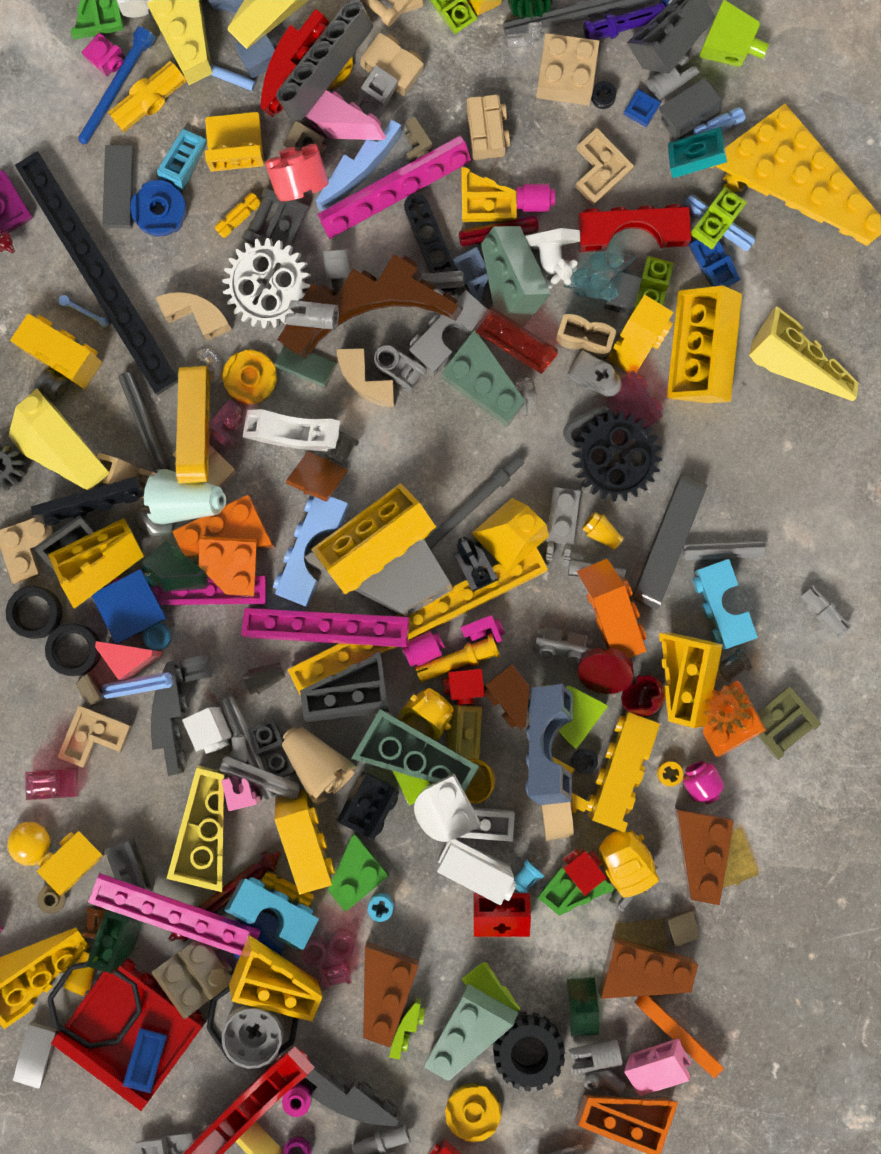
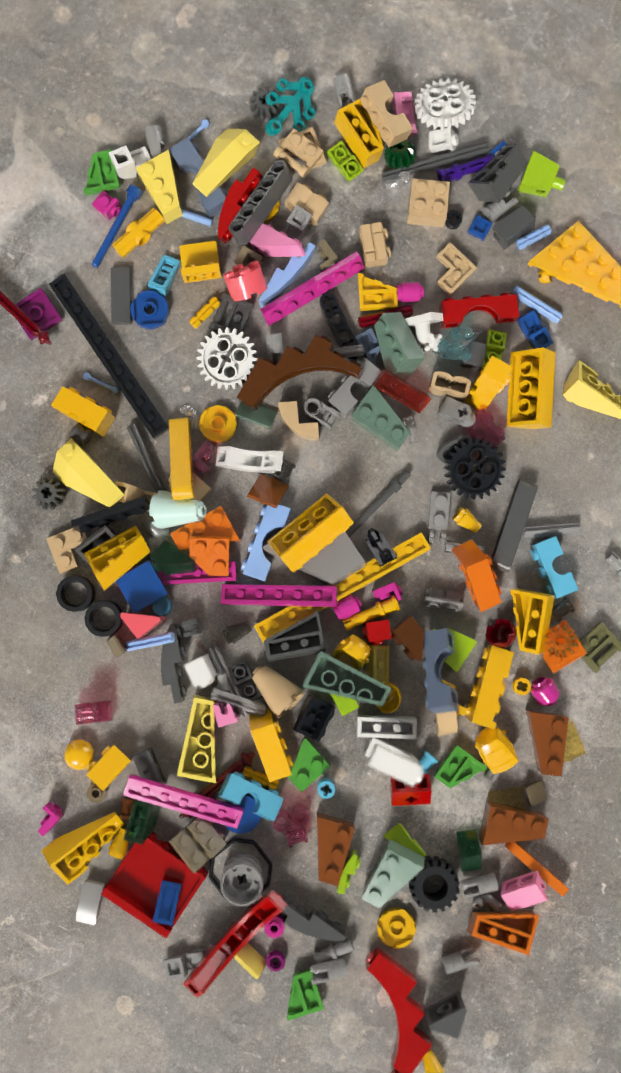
camera: 10 degrees left, 0 degrees up
(76, 1037) = (119, 888): black piece -> none
(91, 728) = (118, 672): tan plate -> none
(207, 315) = (187, 382): tan brick -> none
(273, 983) = (254, 845): yellow wedge -> none
(313, 315) = (261, 379): light grey hinge -> none
(445, 810) = (369, 720): white slope -> none
(511, 533) = (404, 524): yellow slope -> none
(583, 869) = (466, 756): red brick -> none
(589, 768) = (458, 675): black bush -> none
(605, 670) = (474, 617): dark red tile -> none
(697, 152) = (520, 256): teal tile -> none
(718, 218) = (537, 301): lime slope -> none

